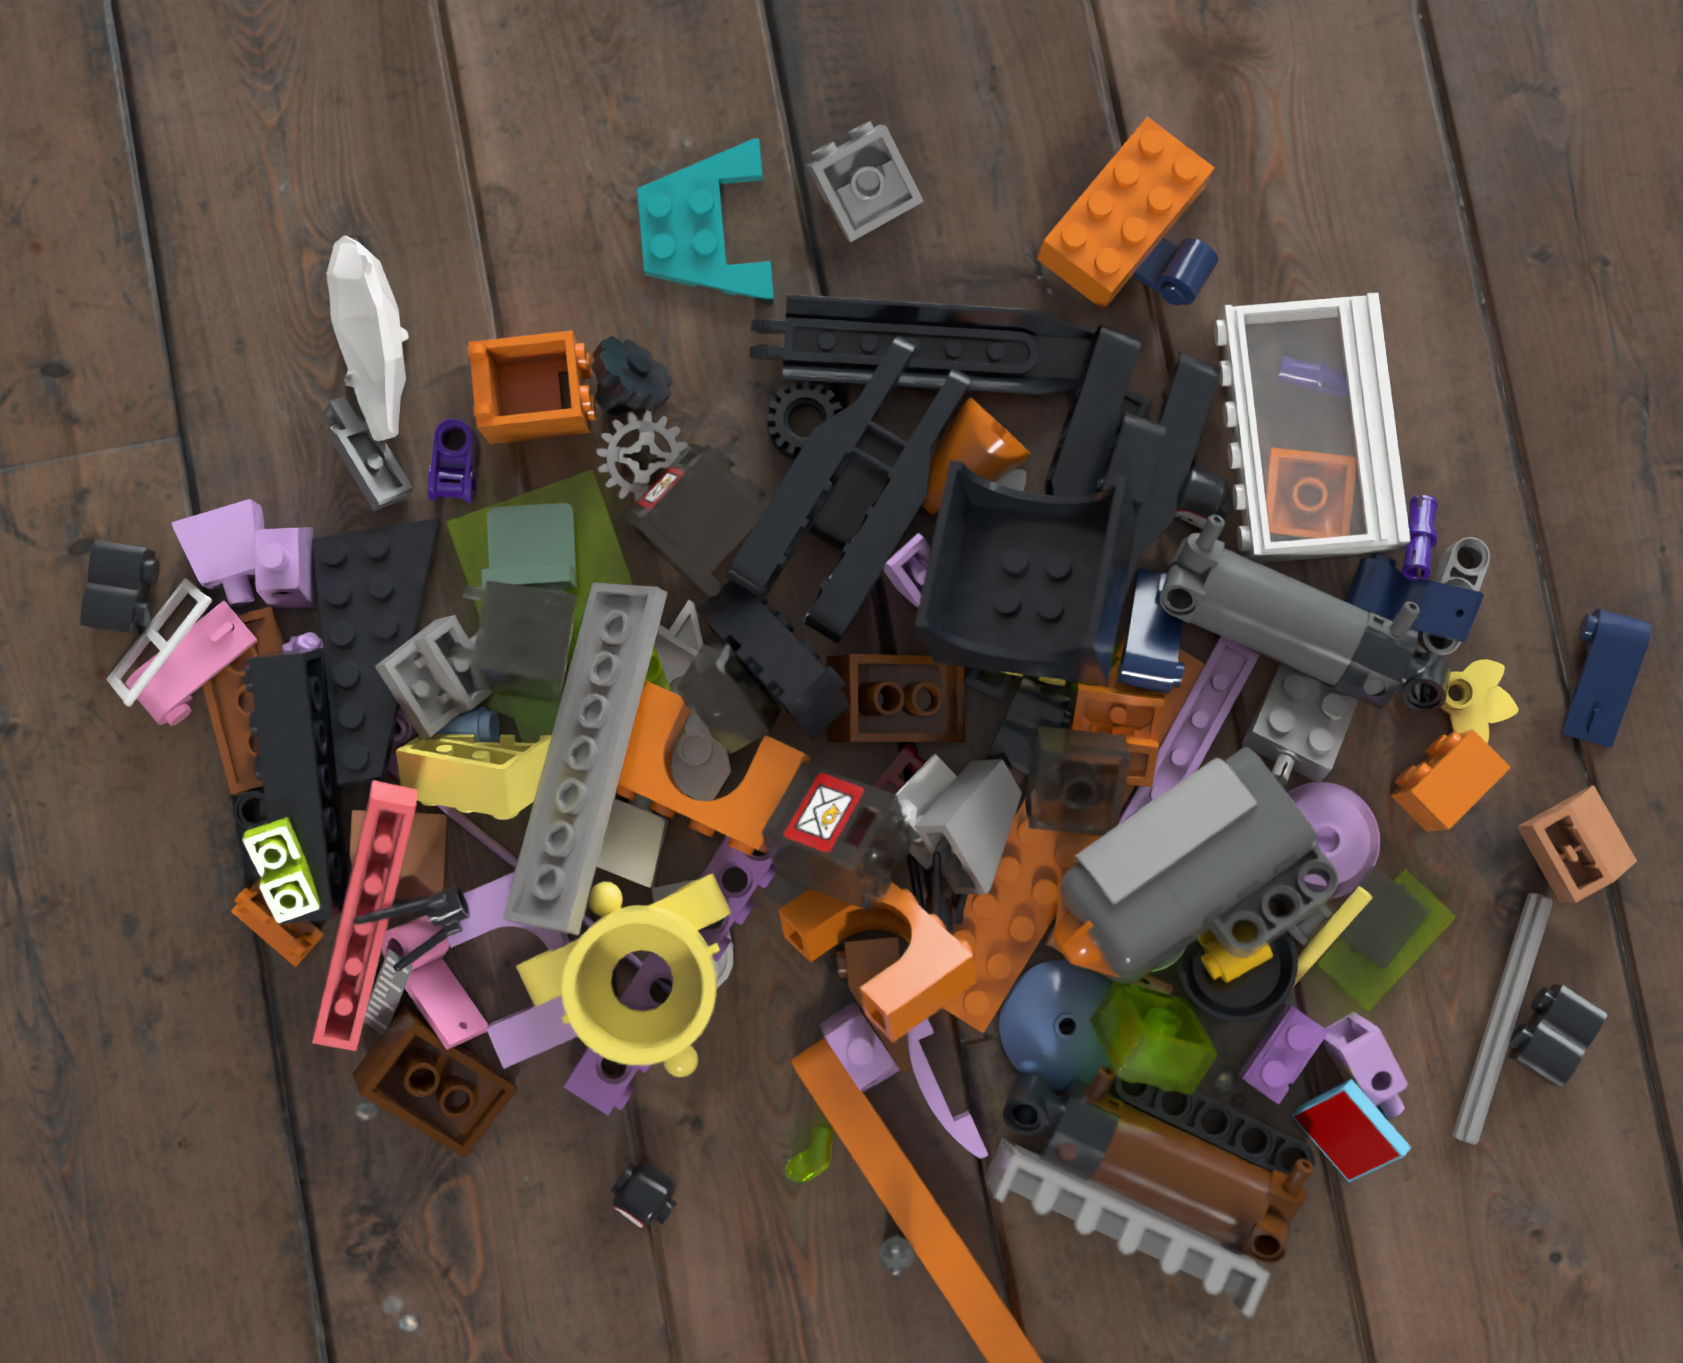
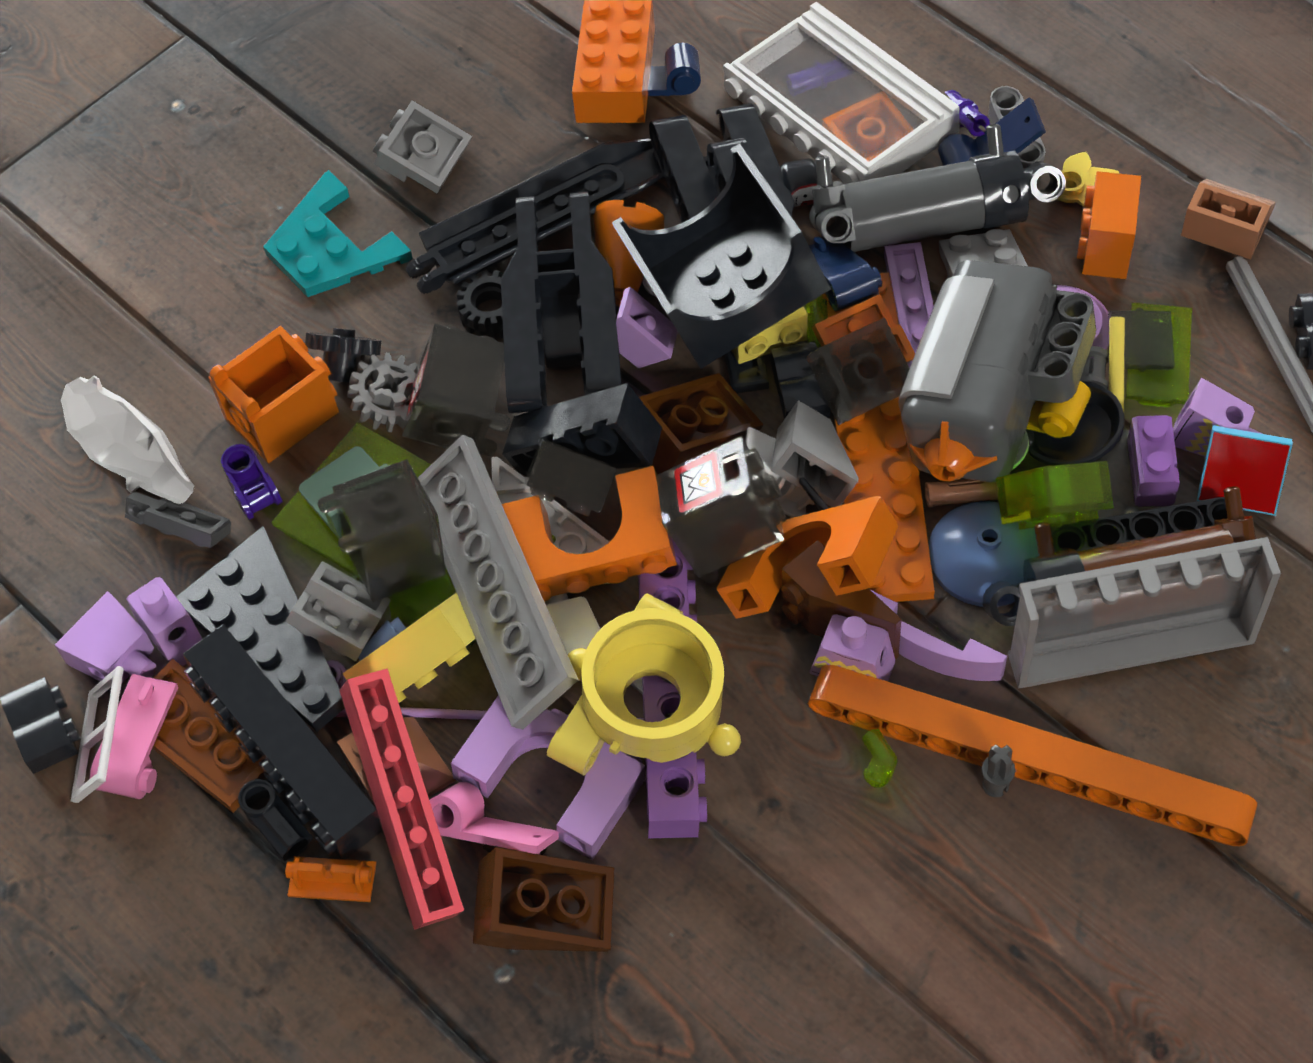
camera: 30 degrees left, 25 degrees down
(282, 869) = (311, 791): slope -> none
(386, 993) = (456, 841): light grey sticker -> none
(442, 908) = (459, 748): black plant -> none
(644, 1194) = (772, 872): black head -> none
(1608, 675) = (1156, 115): dark blue door -> none

